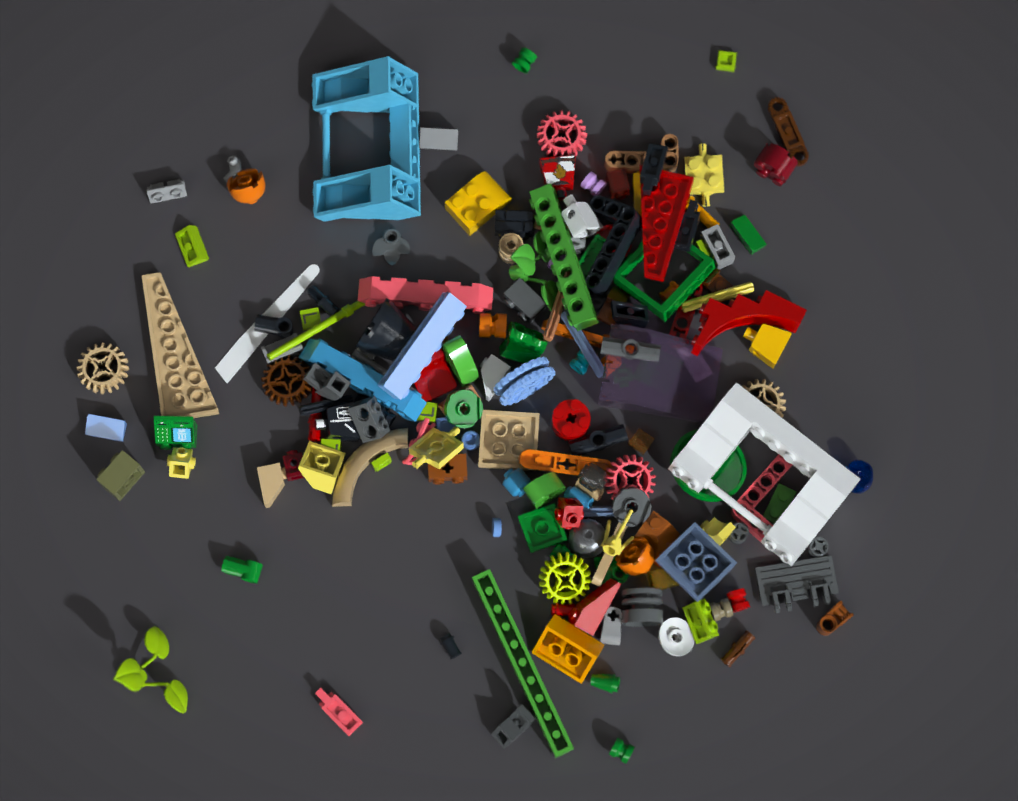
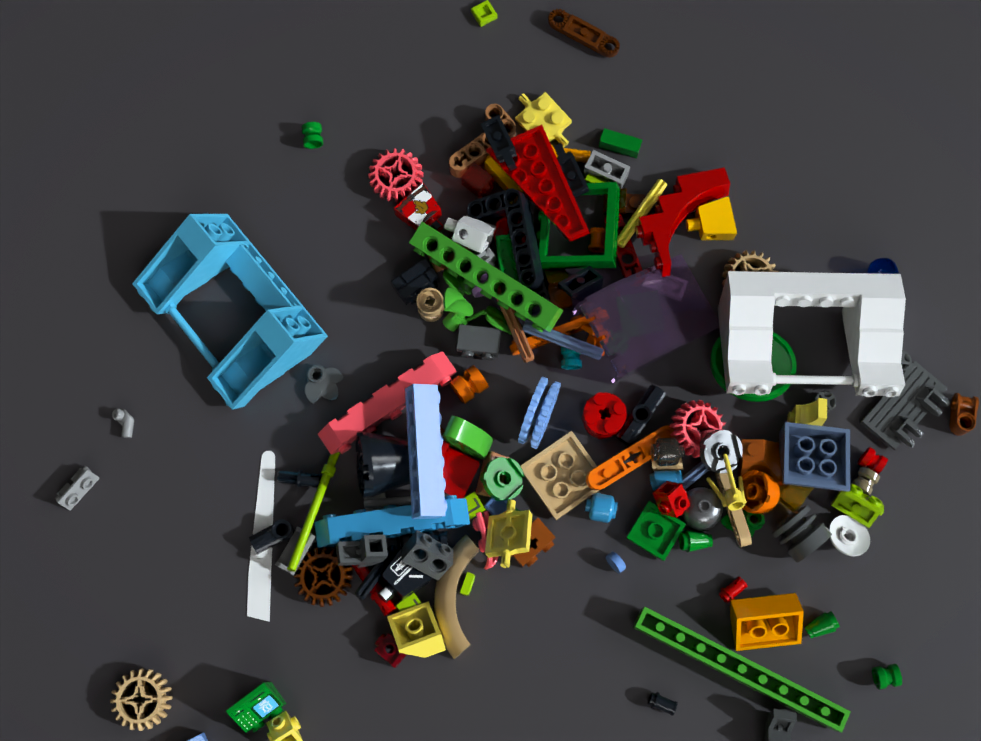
camera: 35 degrees left, 0 degrees up
(177, 370) = (219, 650): tan wing -> none
(191, 245) = (139, 520): lime slope -> none
(247, 186) = (149, 427): orange cylinder -> none
(271, 482) = (382, 682): tan slope -> none
(310, 318) = (299, 503): lime tile -> none
(438, 139) = (290, 257): light grey hinge -> none
(470, 440) = (529, 501): medium blue tile -> none
(477, 202) = (368, 288): yellow brick -> none
(491, 372) = (503, 428): white slope -> none
(522, 343) = (509, 381): green piece -> none
(544, 489) = (633, 496): bright green beam -> none
(559, 584) = (706, 551): neon yellow gear -> none
(591, 609) = (759, 568): slope -> none
(593, 184) = (457, 196): lavender wheel -> none
(611, 629) = (788, 573): light grey piece -> none
(617, 347) = (603, 318): dark grey piece -> none
(641, 441) = (676, 387): clear orange tile -> none
(737, 648) = (906, 504): reddish brown pin -> none
(761, 491) = (815, 352): coral beam -> none
(775, 164) = (597, 65): dark red brick -> none
(779, 503) = (835, 351): bright green plate -> none

